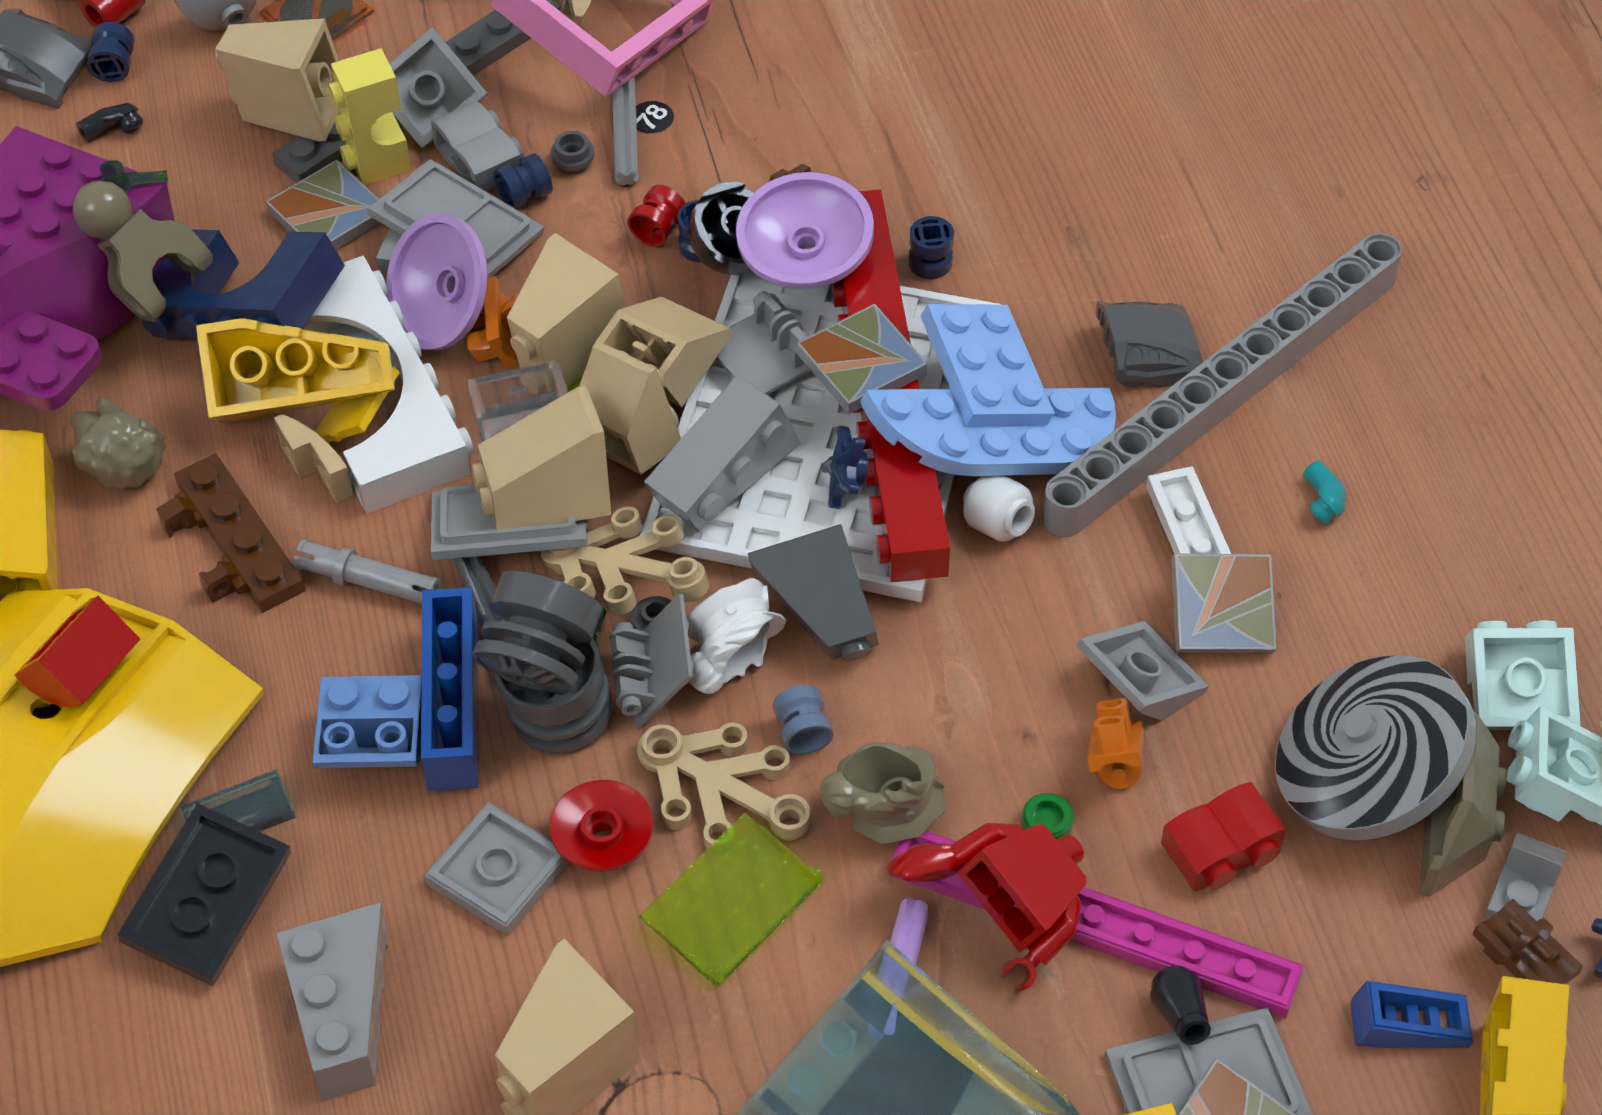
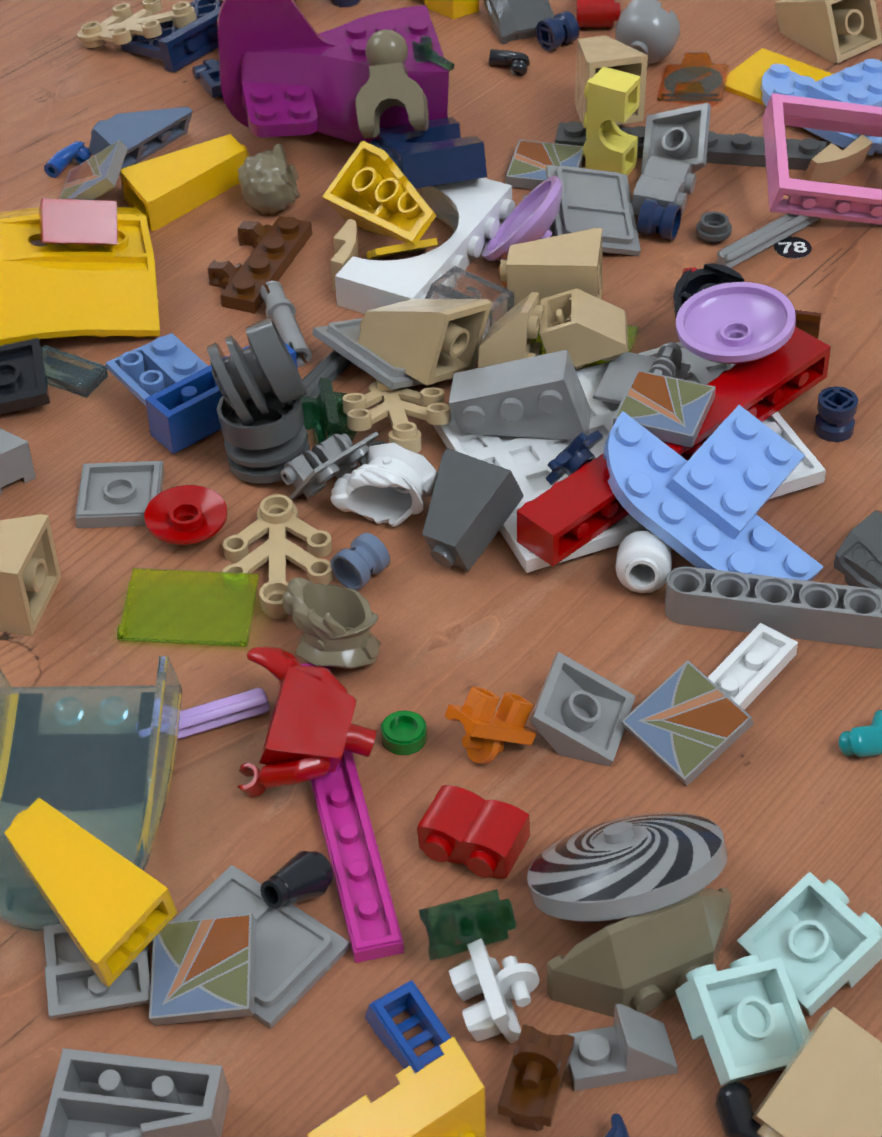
camera: 55 degrees right, 10 degrees down
(1335, 902) = (465, 920): none -> clear green hips
(1434, 938) = (499, 986): none -> white hips

